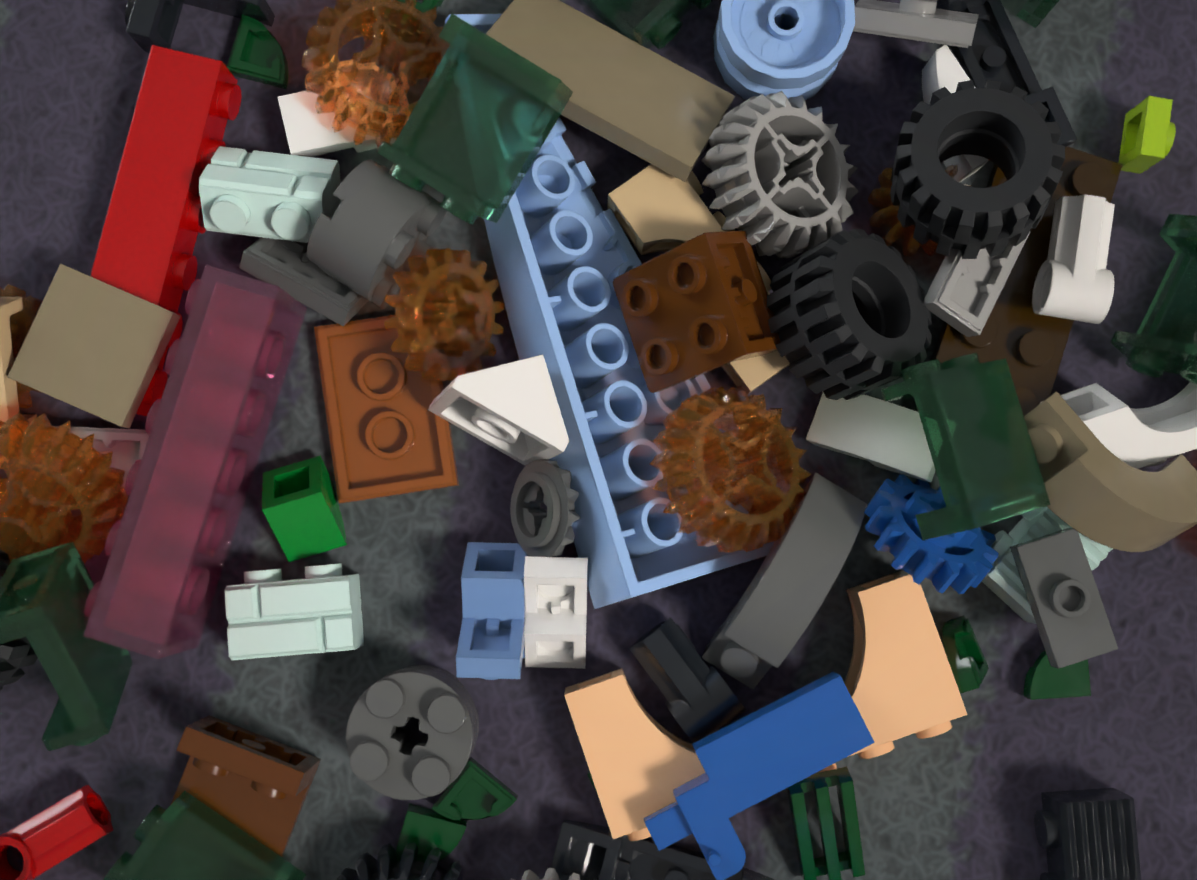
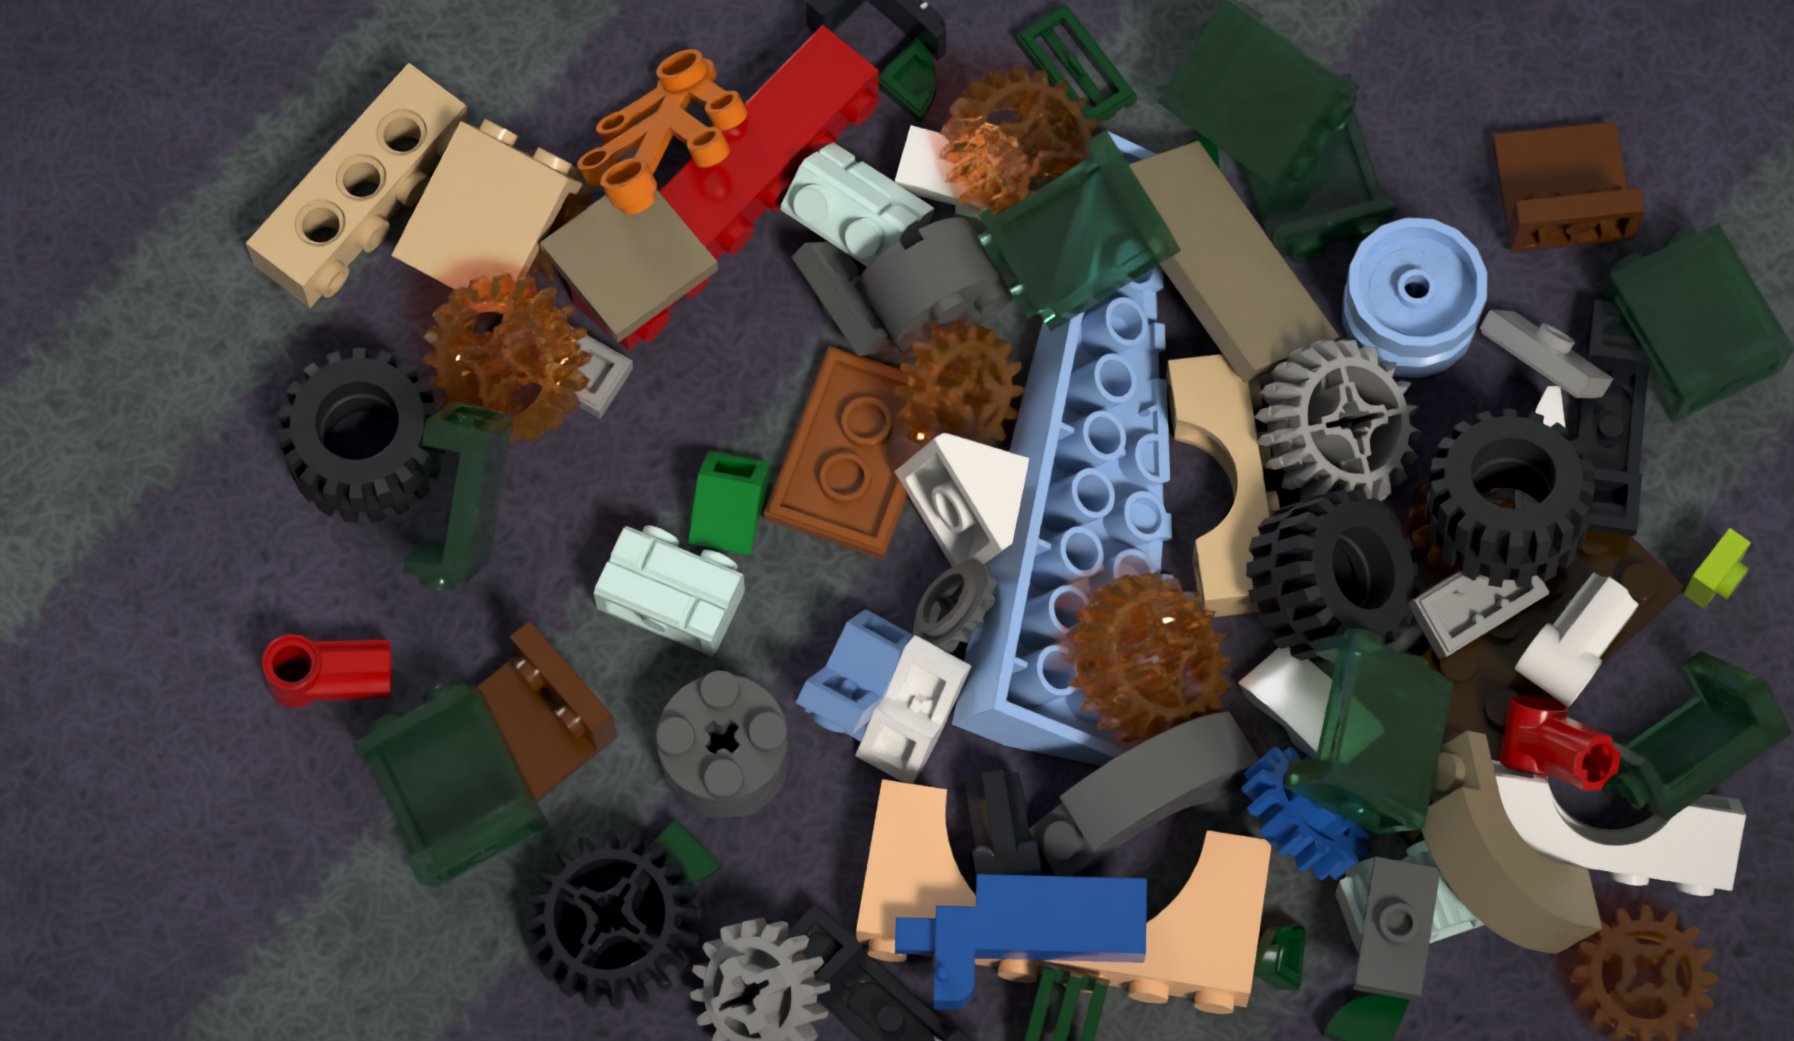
camera: 30 degrees right, 15 degrees down
(49, 217) = (682, 81): none -> orange plant
(195, 465) = (663, 404): clear pink brick -> none
(474, 795) = (742, 844): dark green tile -> none
(696, 309) = (1193, 496): reddish brown bracket -> none
(1093, 365) = (1547, 742): none -> red piece

